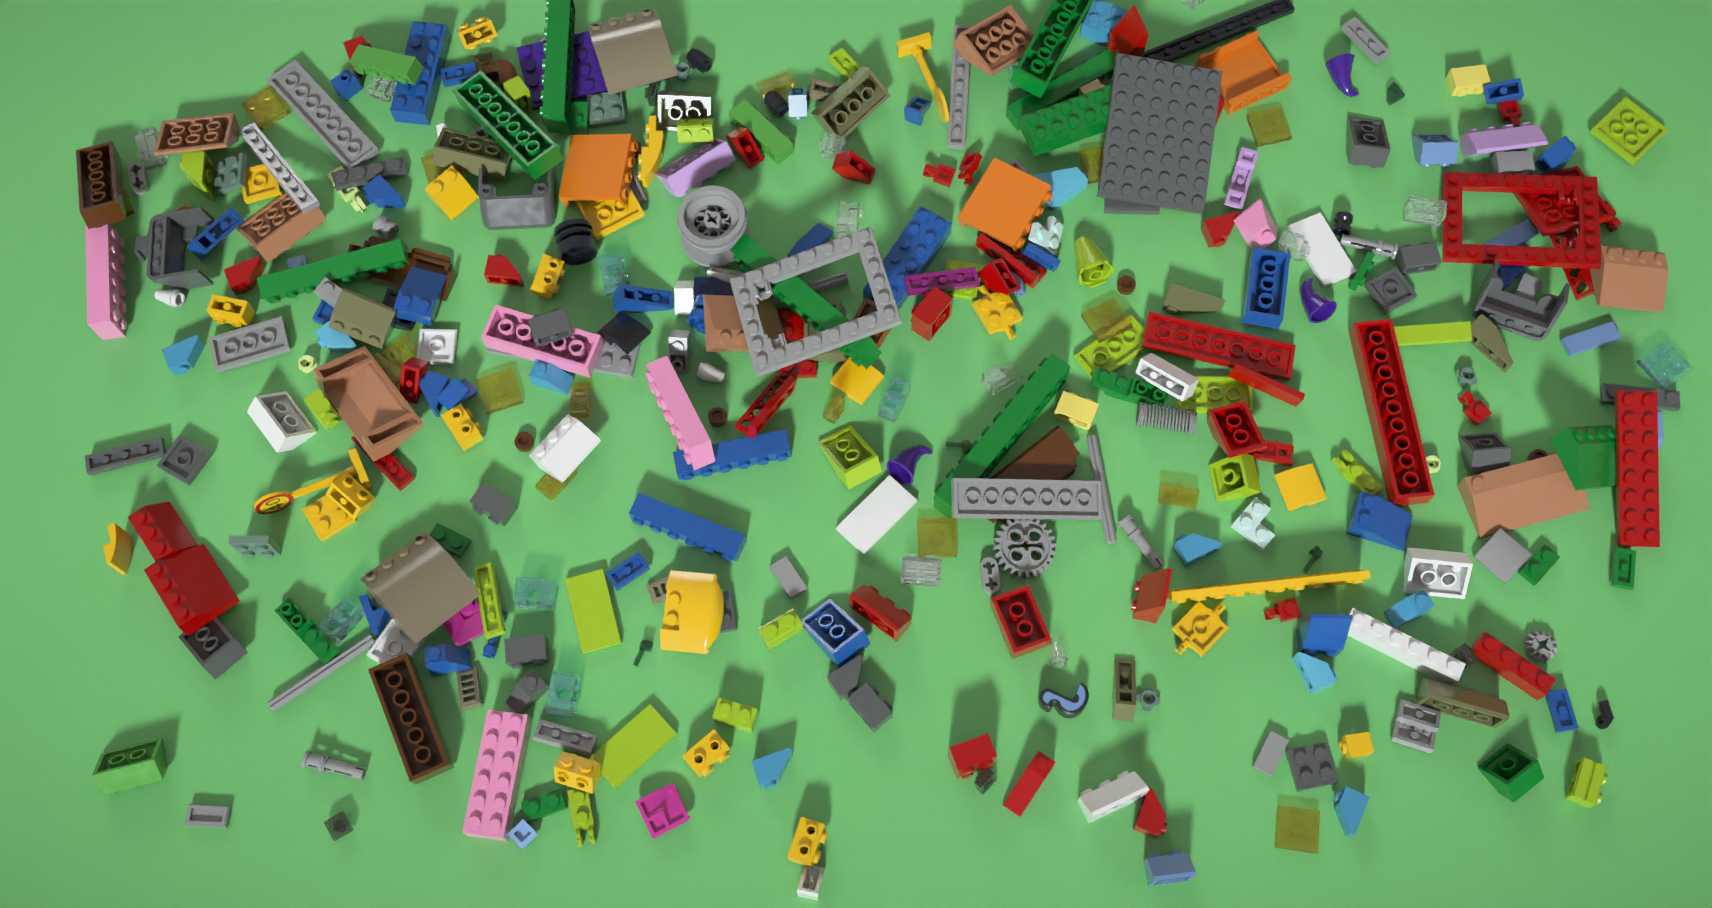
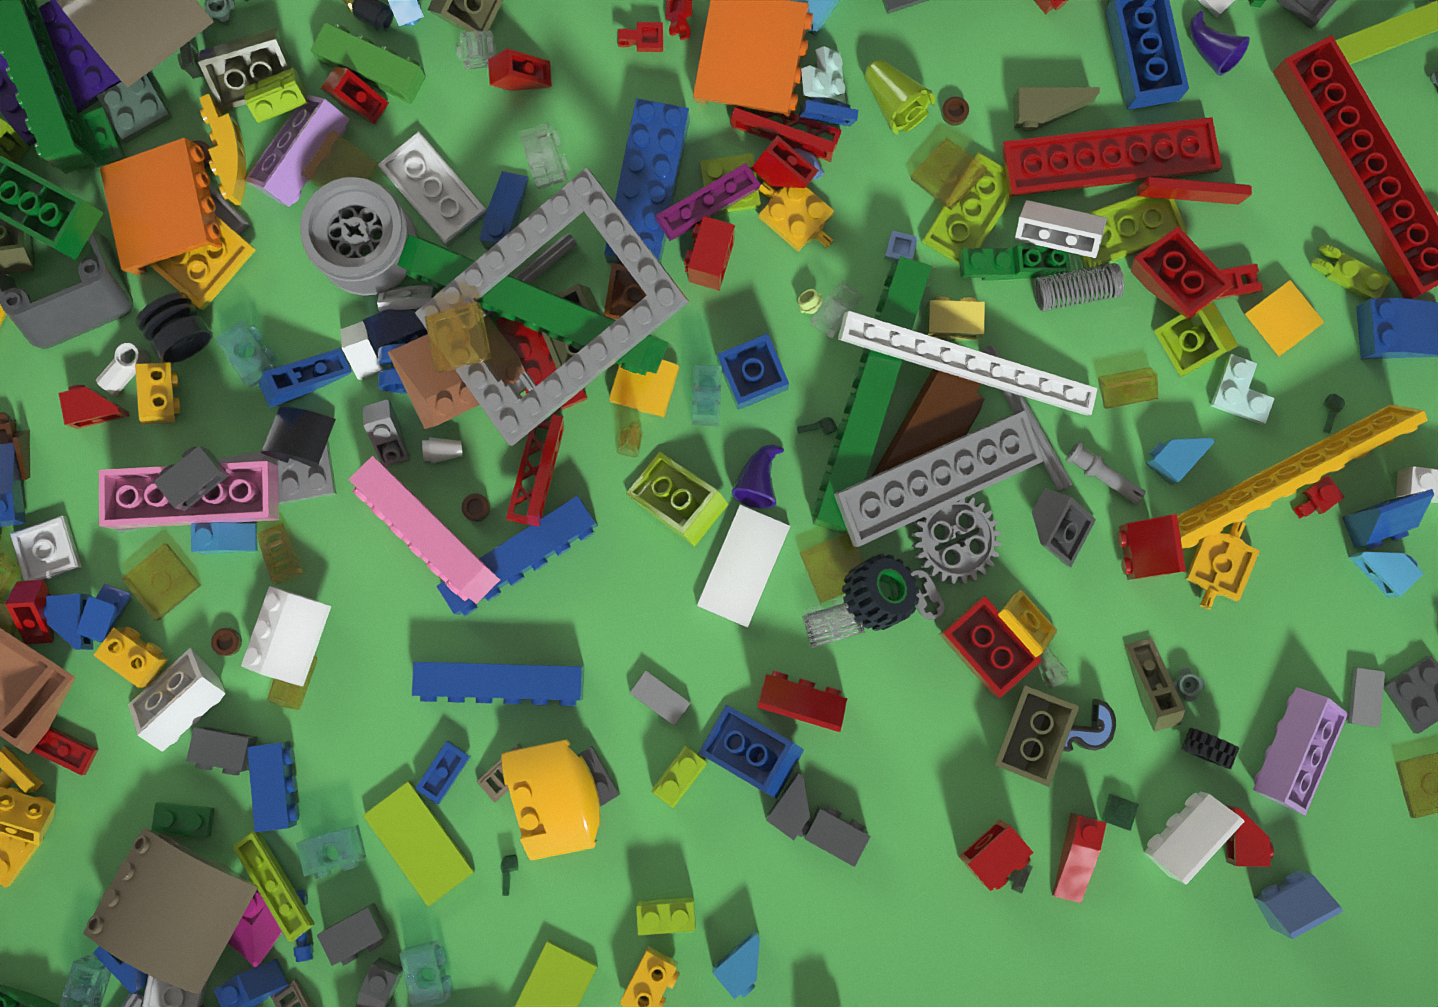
camera: 20 degrees left, 15 degrees up
(478, 464) = (175, 700): none -> white slope
(515, 539) = (273, 786): none -> blue brick
(532, 256) = (120, 369): none -> white piece
(718, 176) = (338, 160): none -> clear yellow tile
(750, 299) = (458, 337): none -> clear yellow tile
(770, 218) = (432, 188): none -> white tile
(930, 395) = (753, 371): none -> blue brick
(960, 558) = (880, 592): none -> black wheel
(984, 365) = (809, 301): none -> yellowish green plate
(1028, 687) = (1037, 735): none -> olive slope
(1051, 615) = (1028, 623): none -> yellow tile
(1059, 351) = (900, 245): none -> light blue plate
(1070, 766) = (1120, 812): none -> clear green plate
(1073, 435) = (966, 363): none -> white plate
(1099, 563) = (1061, 525): none -> dark grey slope
(1146, 742) = (1210, 748): none -> black tyre
(1211, 770) = (1300, 750): none -> lavender slope

